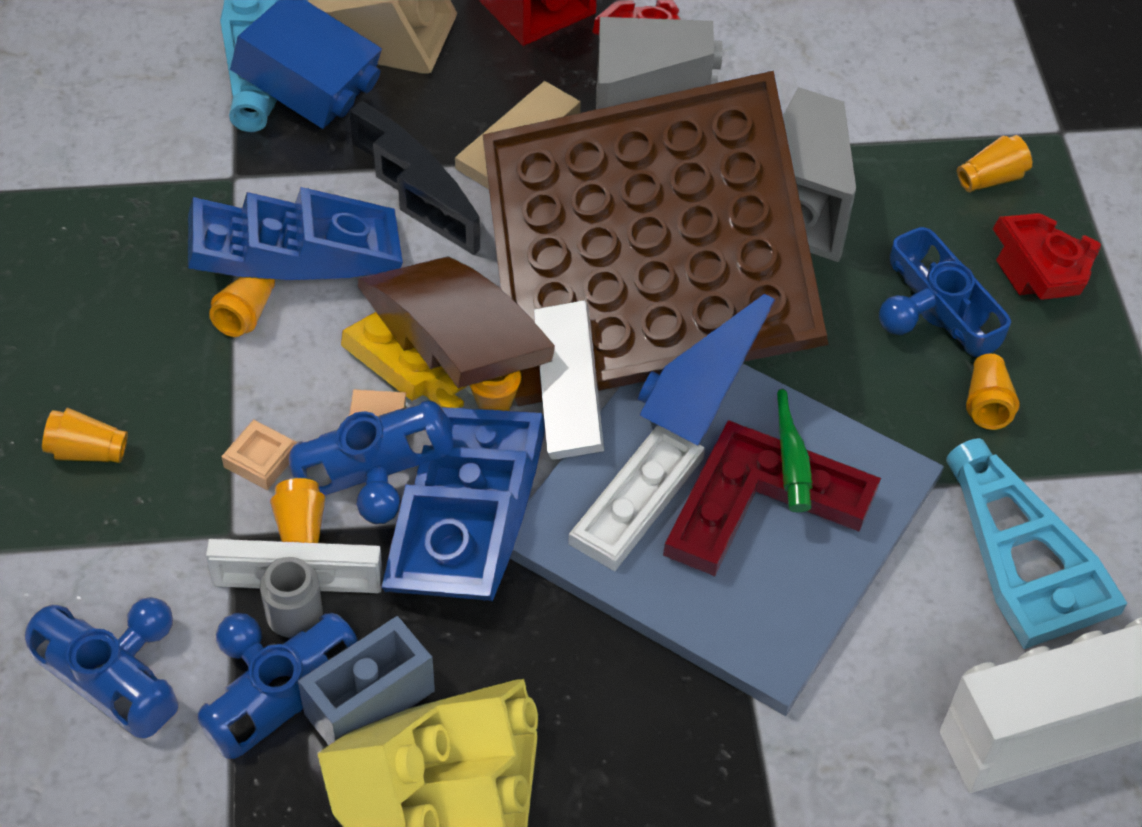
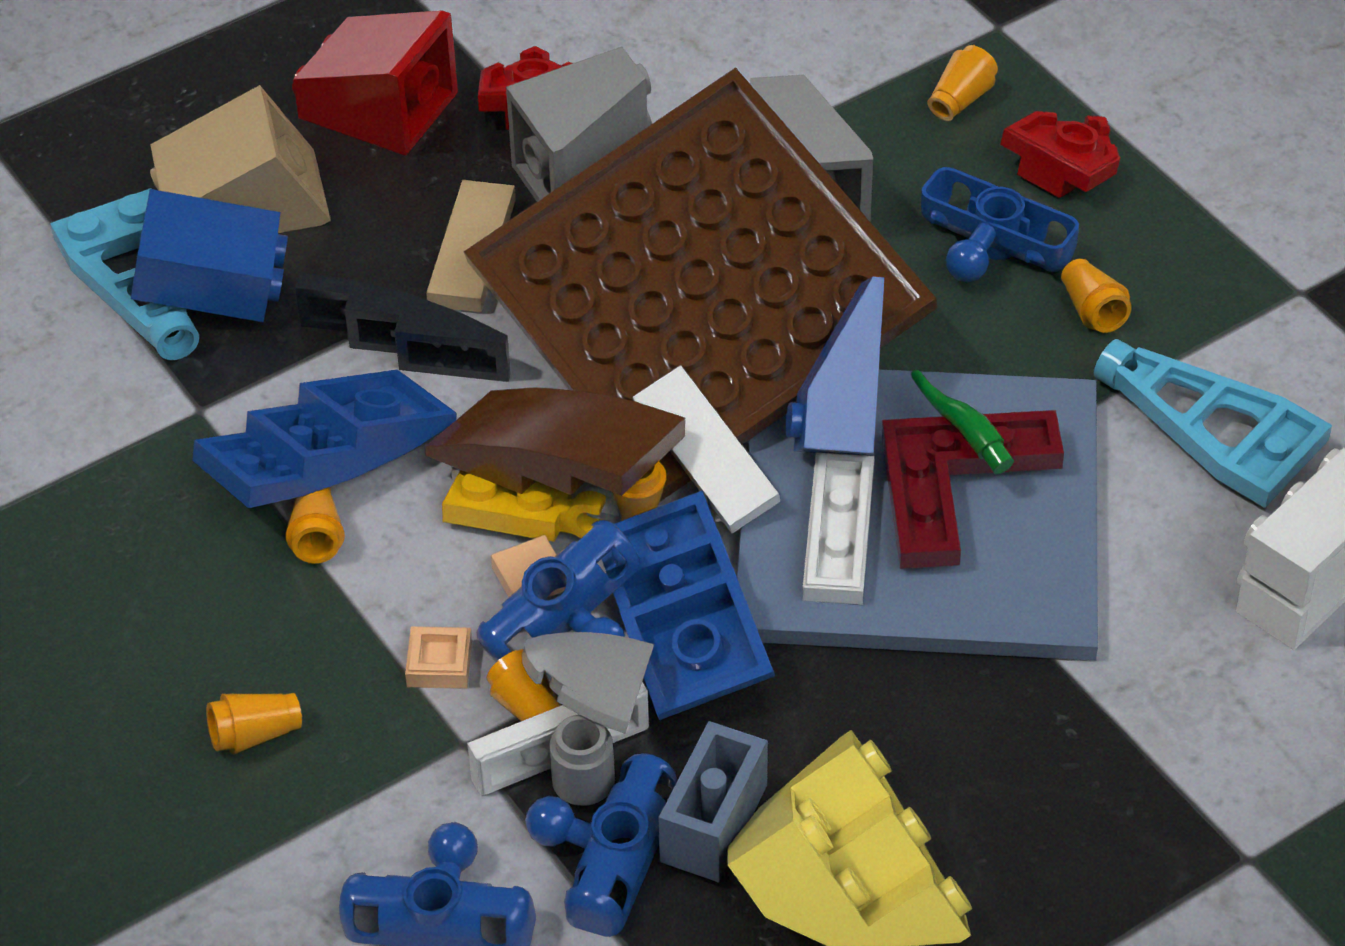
camera: 25 degrees left, 5 degrees down
(338, 529) = (591, 672): none -> light grey brick

